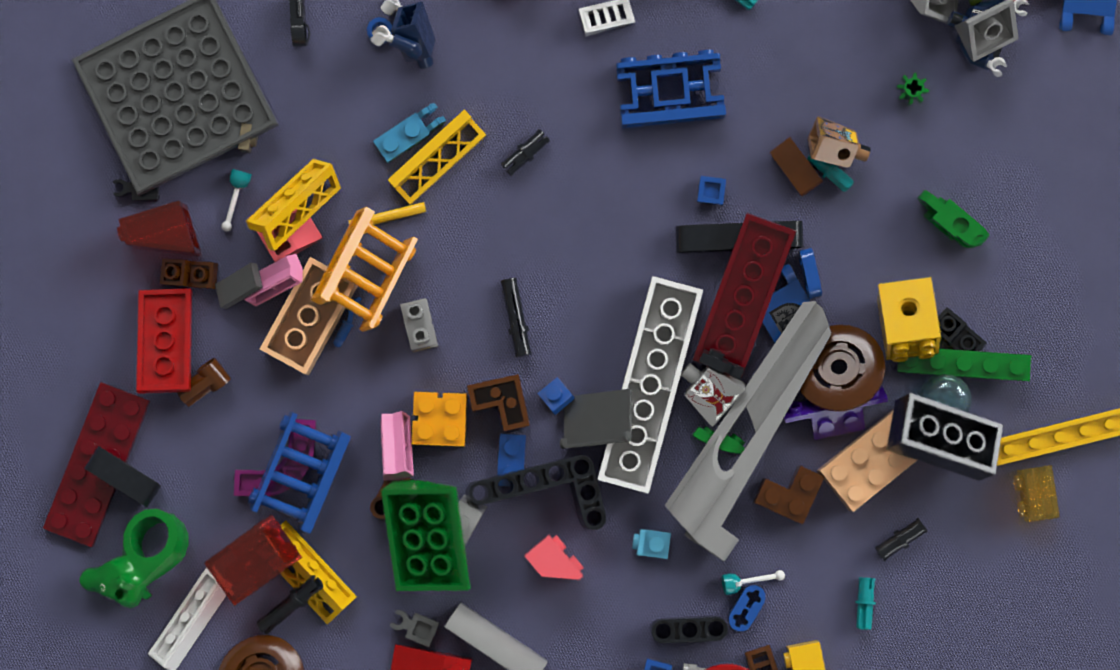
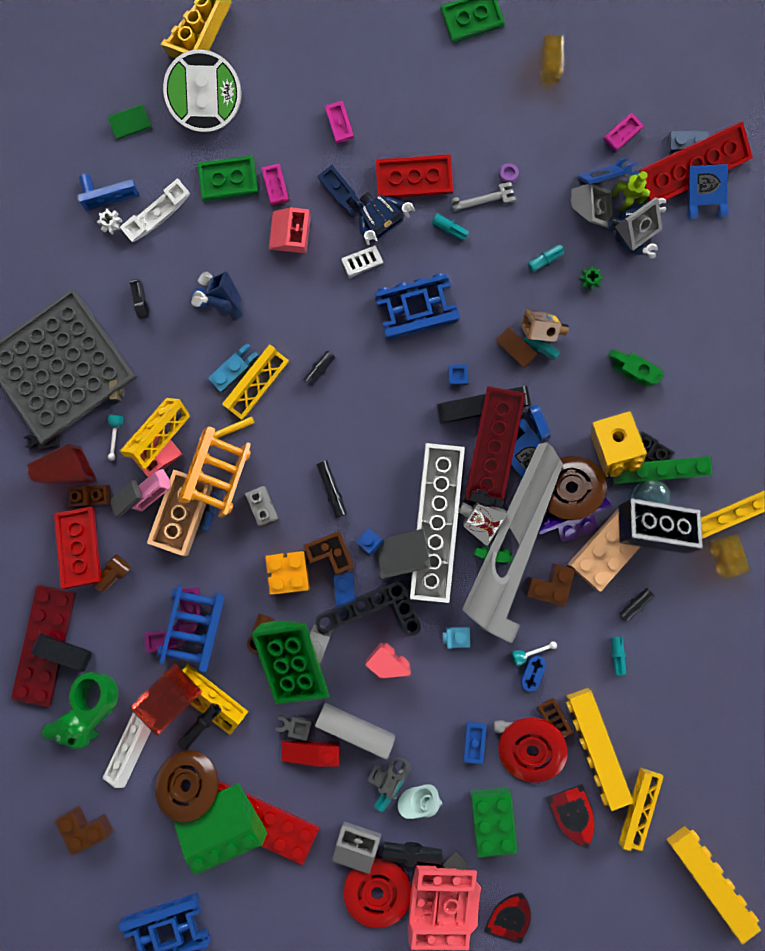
camera: 10 degrees left, 0 degrees up
(396, 446) = (259, 597): bright pink piece -> none
(701, 634) = (503, 698): black beam -> none
(856, 52) = (546, 258): none -> teal axle

